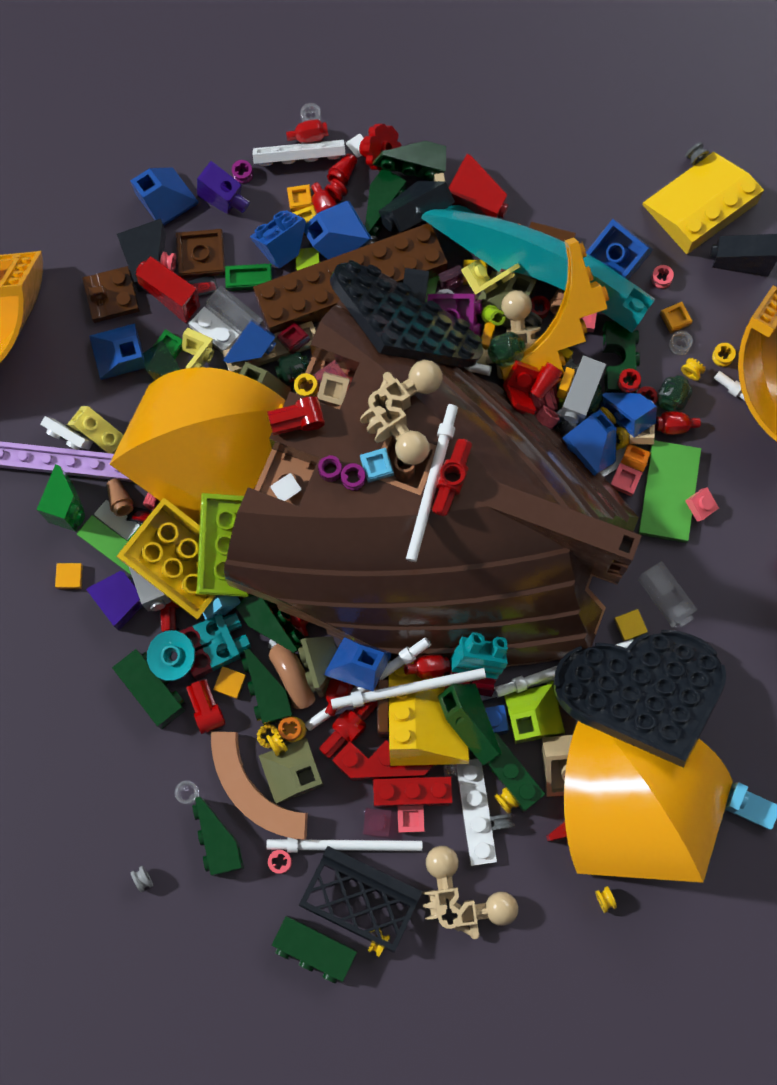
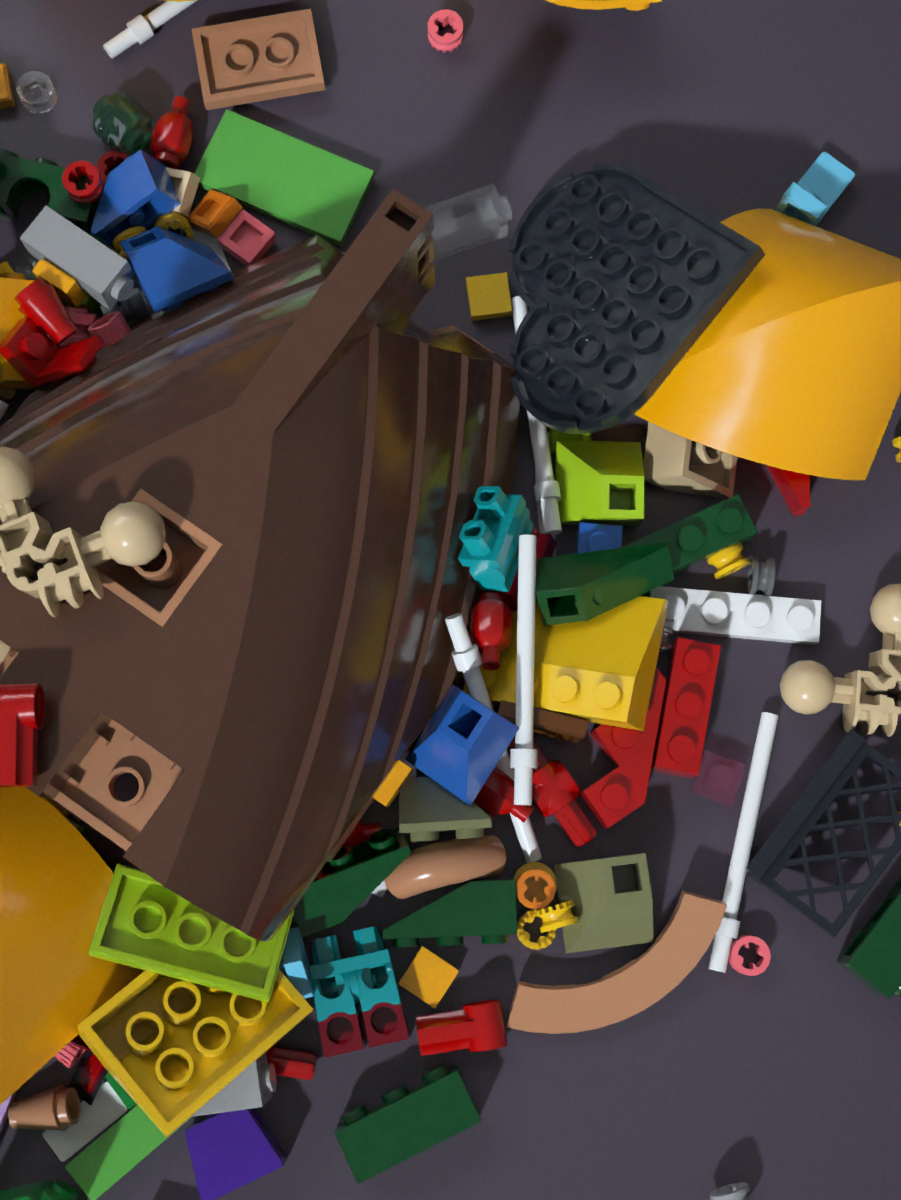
camera: 80 degrees left, 5 degrees up
(160, 655) = (359, 1091): teal dish -> none
(181, 787) = (589, 1099): clear bush -> none
(221, 847) = (700, 1051): dark green slope -> none
(286, 487) = (137, 789): white sticker -> none
(324, 462) = (146, 694): magenta axle -> none
(326, 631) = (393, 782): none -> light orange tile
(361, 475) = (155, 671): magenta bush -> none
(376, 465) = (145, 608): medium azure tile -> none
(410, 819) = (728, 722): coral plate -> none
(445, 433) = (120, 470): white bar -> none
(448, 489) = (188, 462): red axle -> none
(693, 369) = (88, 84): yellow bush -> none
(702, 504) = (320, 132): coral plate -> none
(719, 361) = (65, 26): yellow bush -> none
(737, 458) = (258, 59): none -> nougat plate

